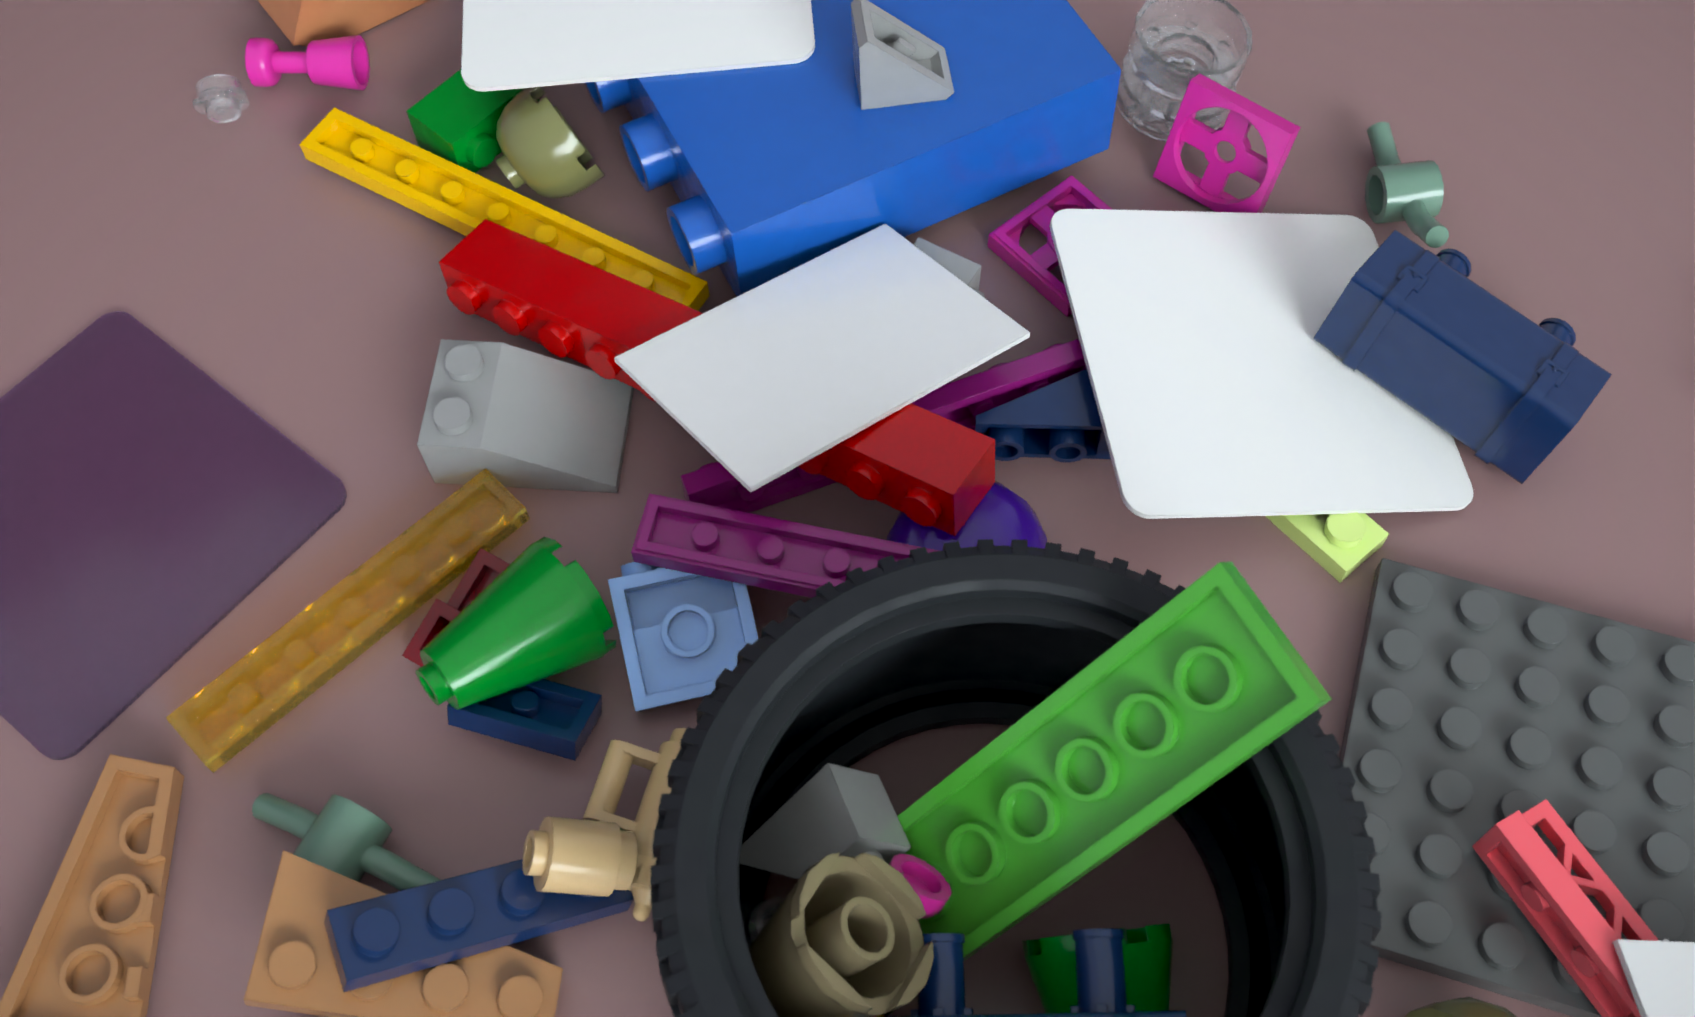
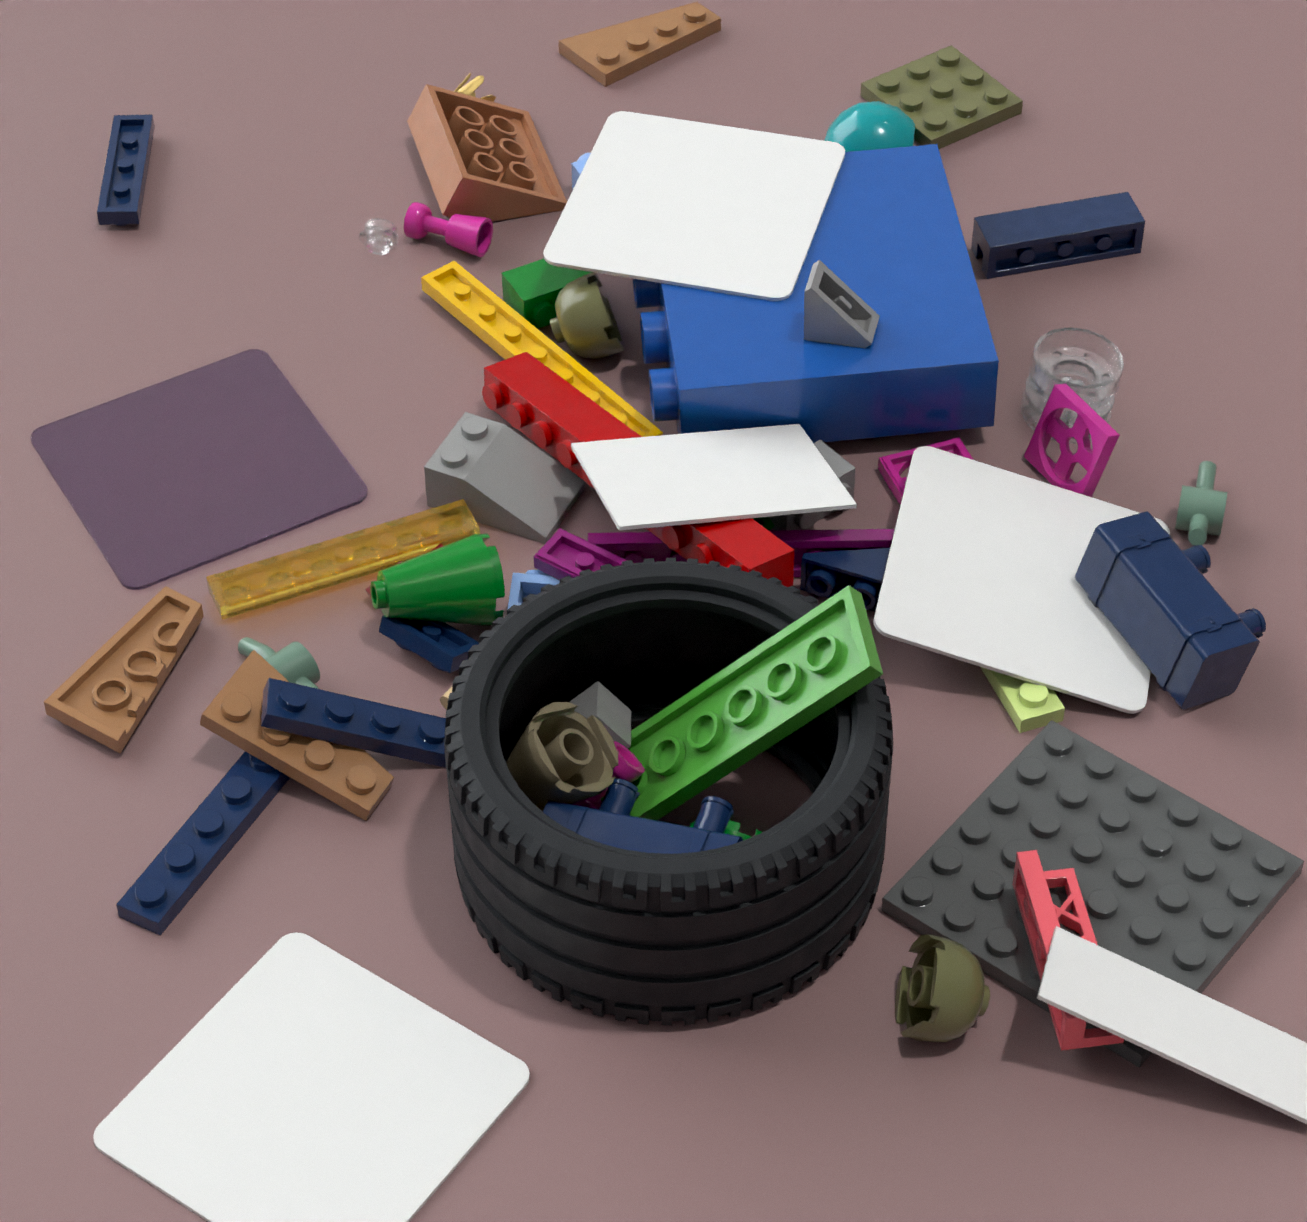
camera: 20 degrees right, 15 degrees down
(580, 857) = (423, 705): tan brick -> none

